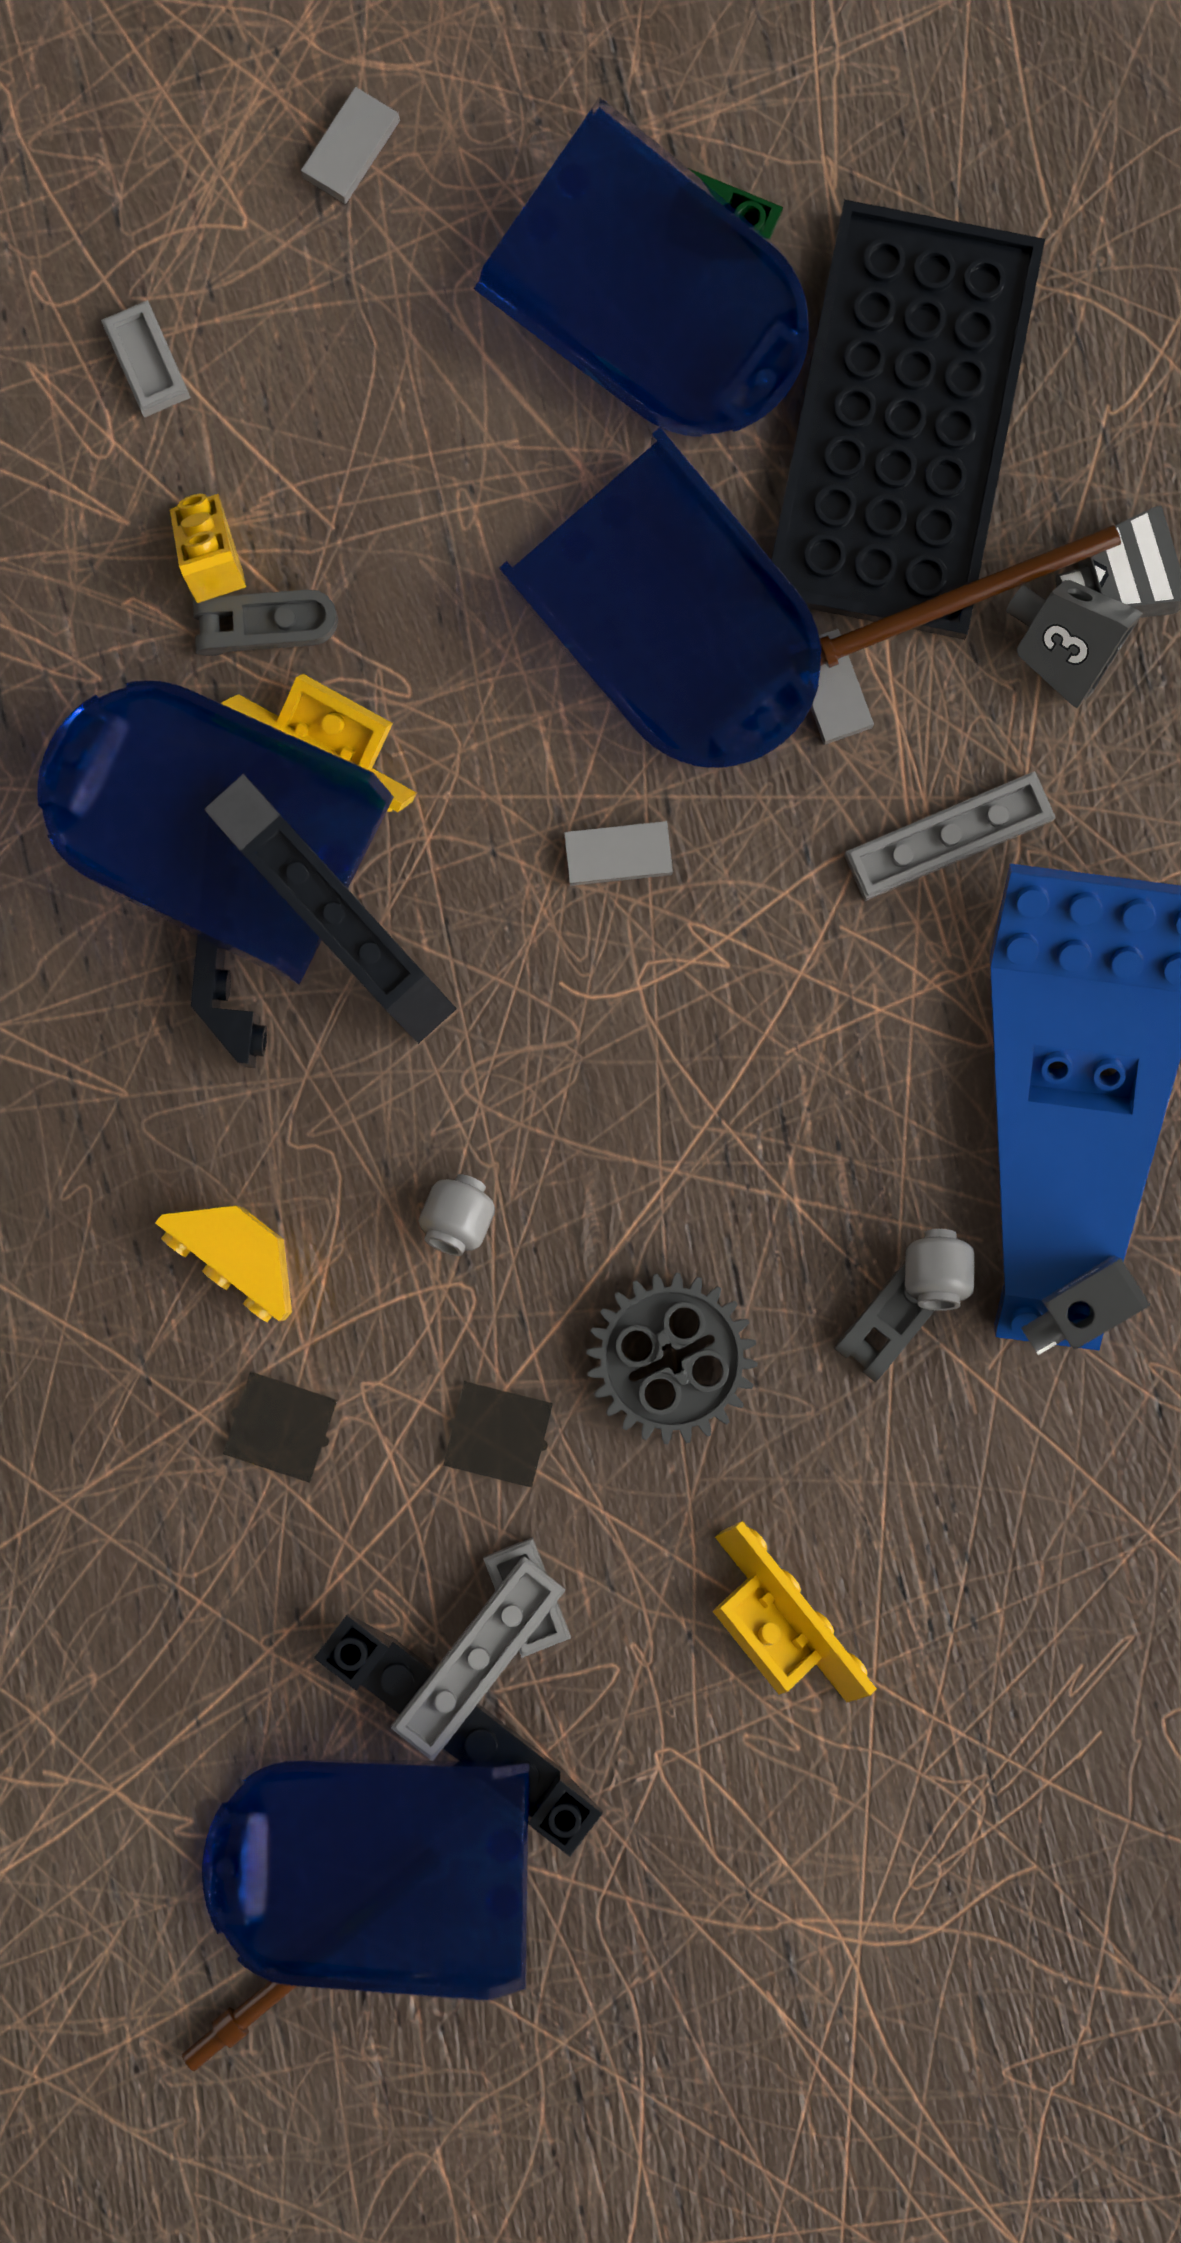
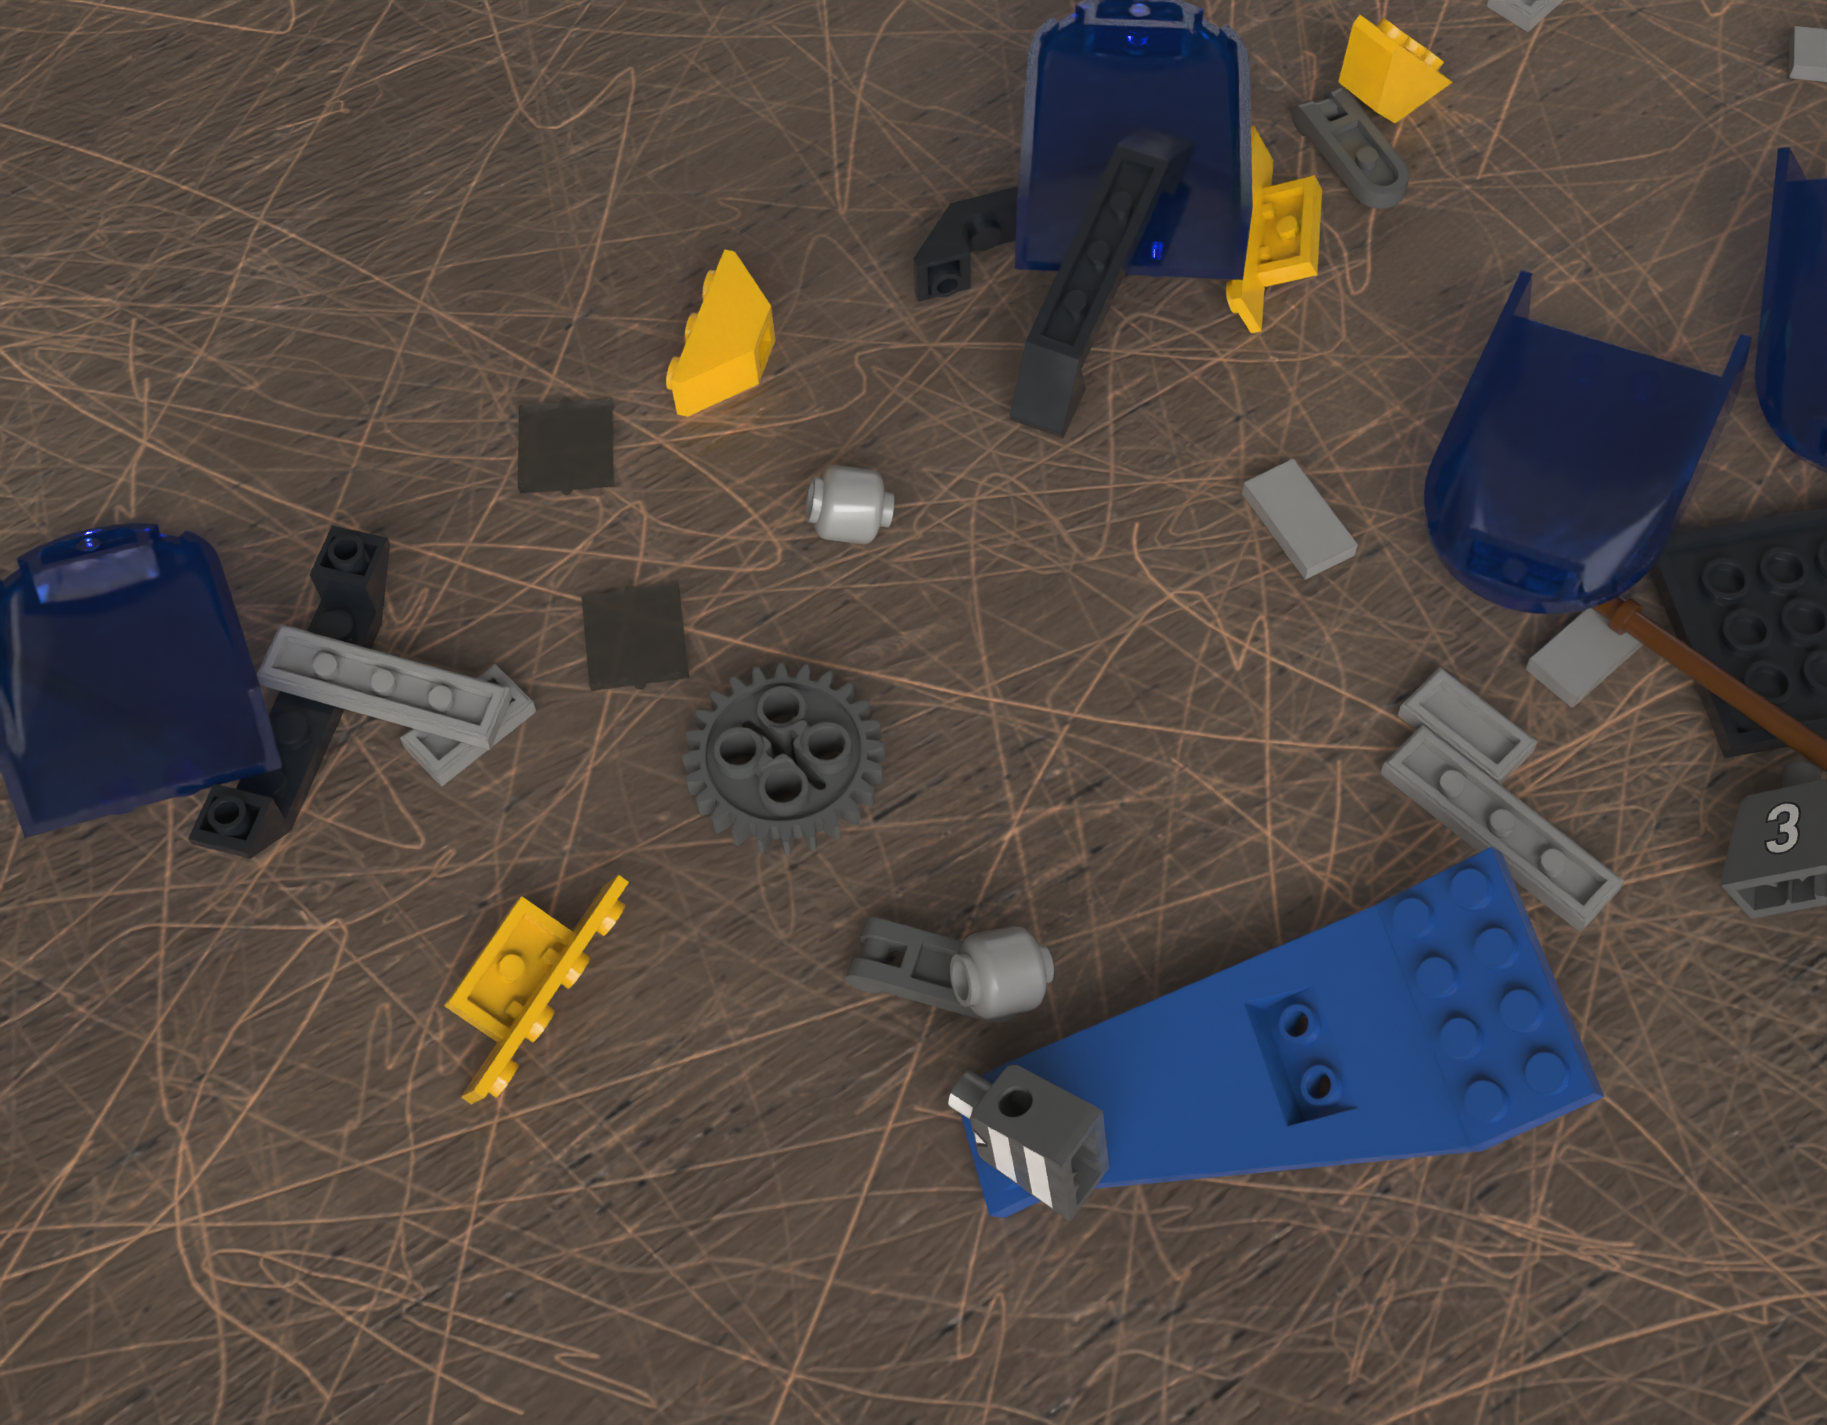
camera: 70 degrees right, 25 degrees down
(858, 817) = (1468, 725): none -> light grey tile

